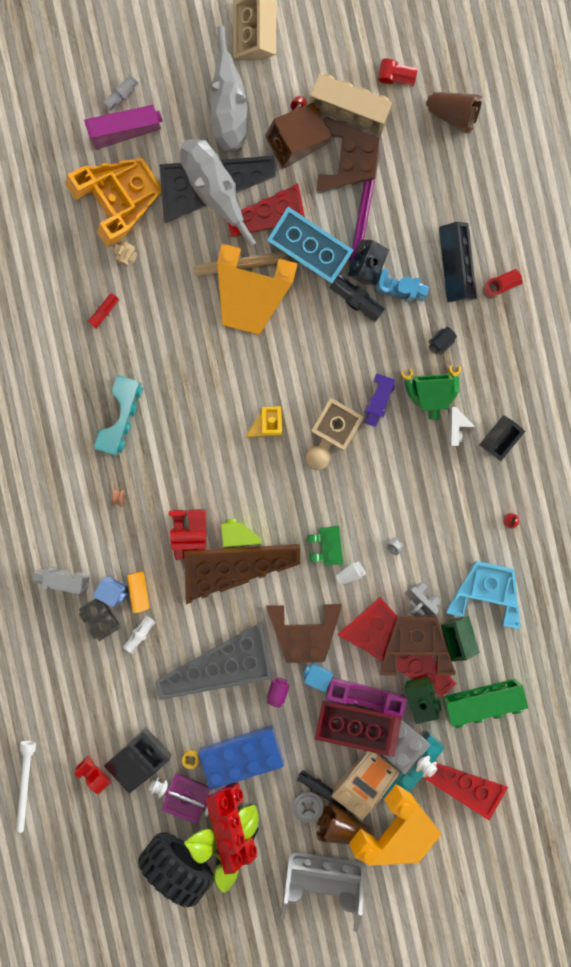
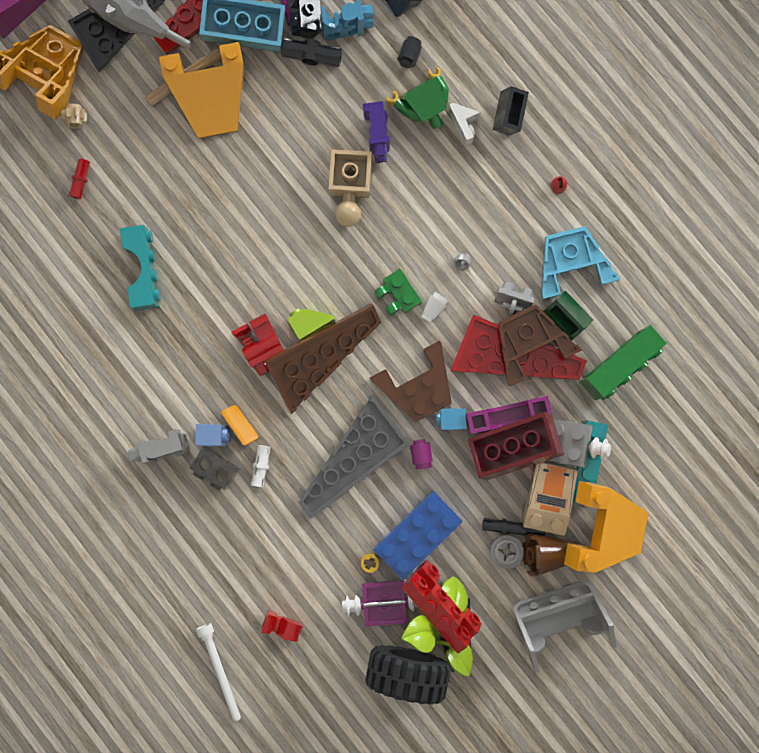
camera: 20 degrees left, 5 degrees down
(118, 497) = (177, 345): nougat bush -> none
(138, 760) = (318, 589): black slope -> none
(267, 423) = (285, 208): yellow slope -> none
(422, 700) = (562, 390): dark green brick -> none
(472, 791) = (659, 456): red wing -> none

